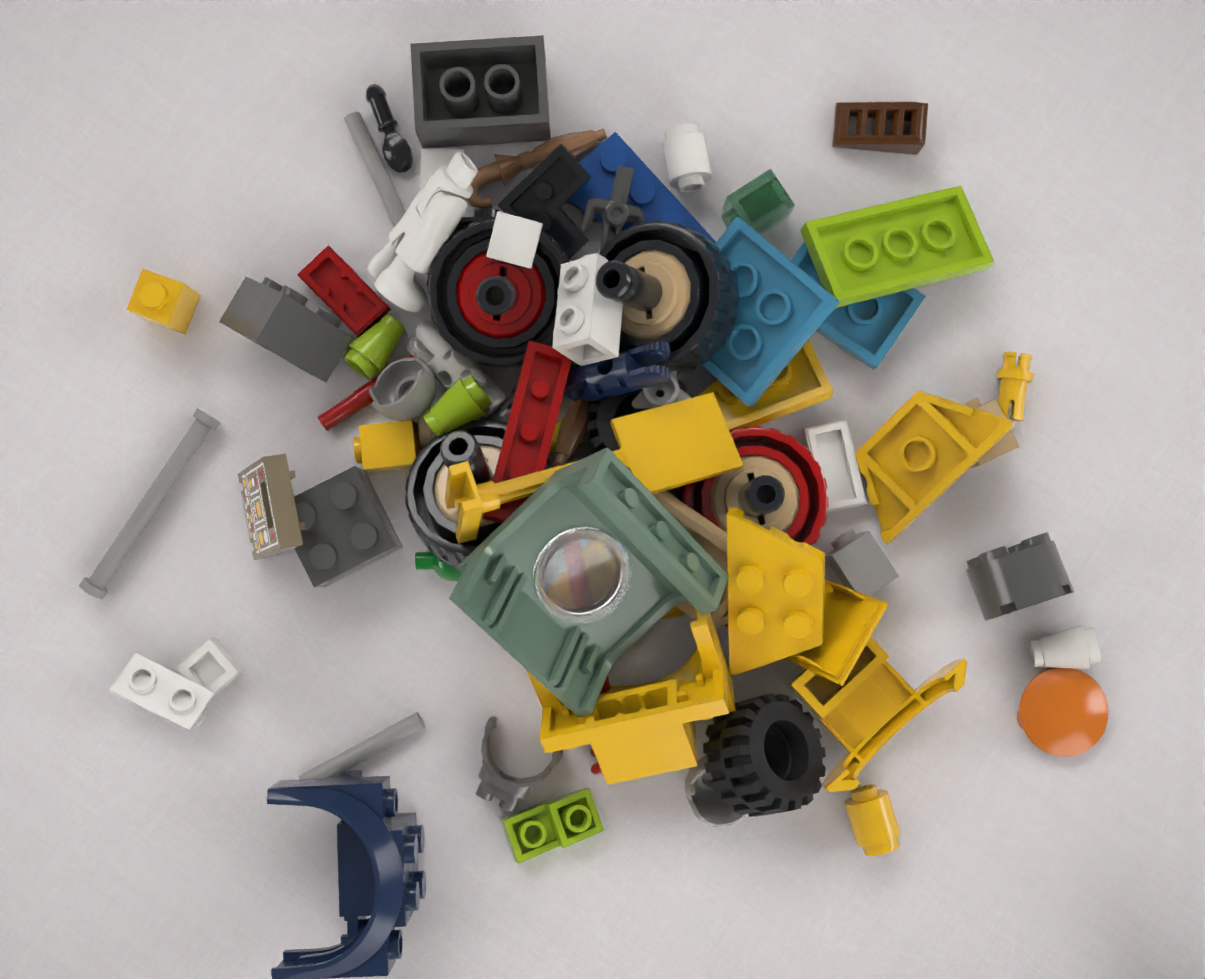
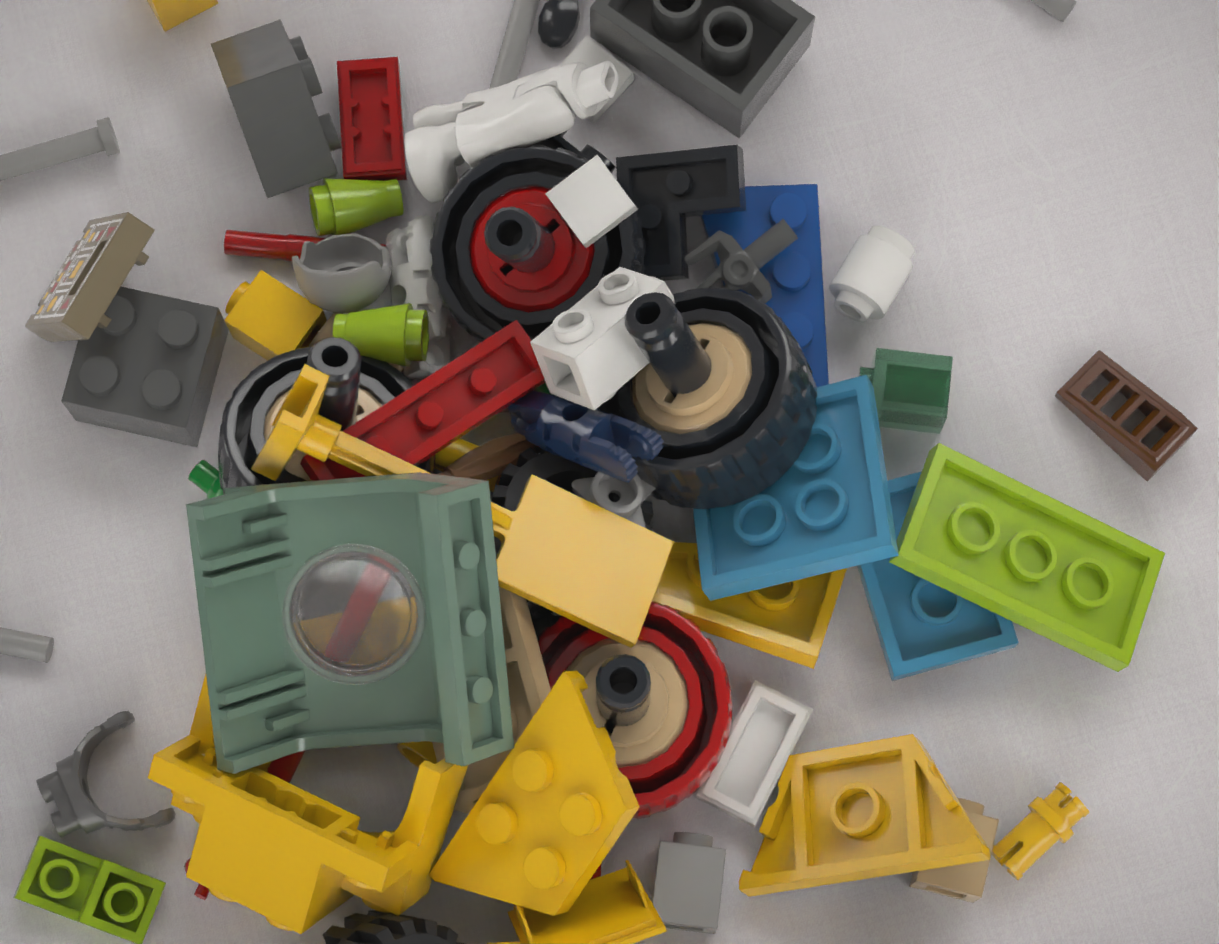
camera: 40 degrees right, 10 degrees down
(508, 166) = (667, 129): medium nougat piece -> none

